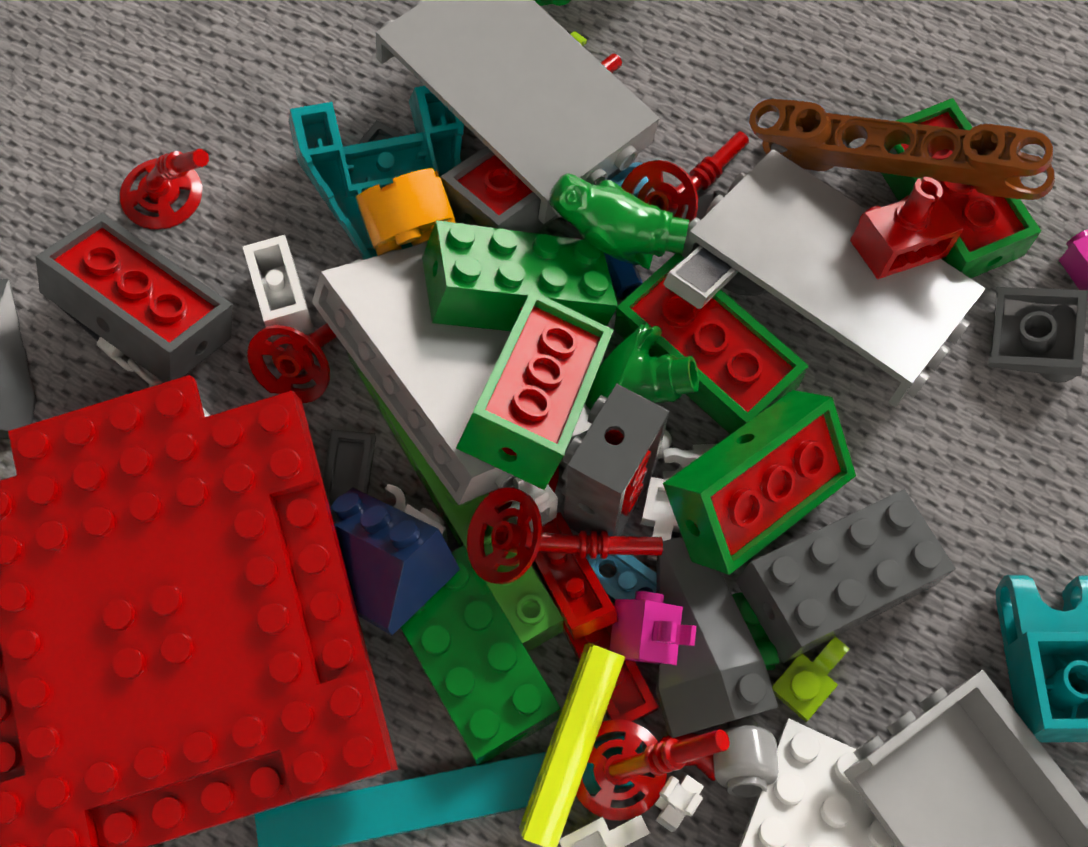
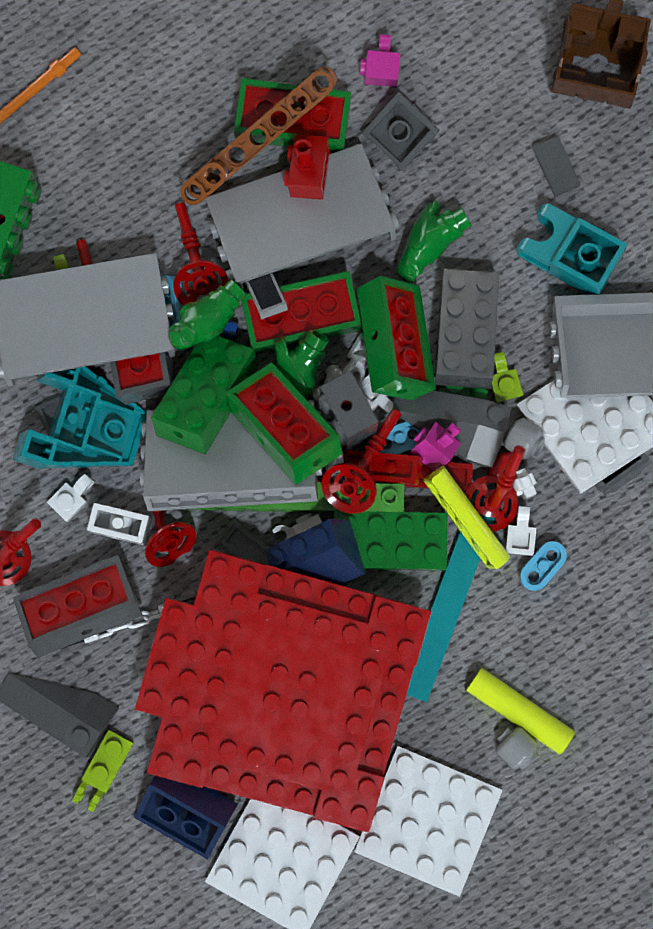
camera: 55 degrees left, 15 degrees up
(286, 218) = (69, 500): none -> white plate
(404, 210) = (124, 427): light orange brick -> none
(929, 453) = (430, 239): none -> green animal

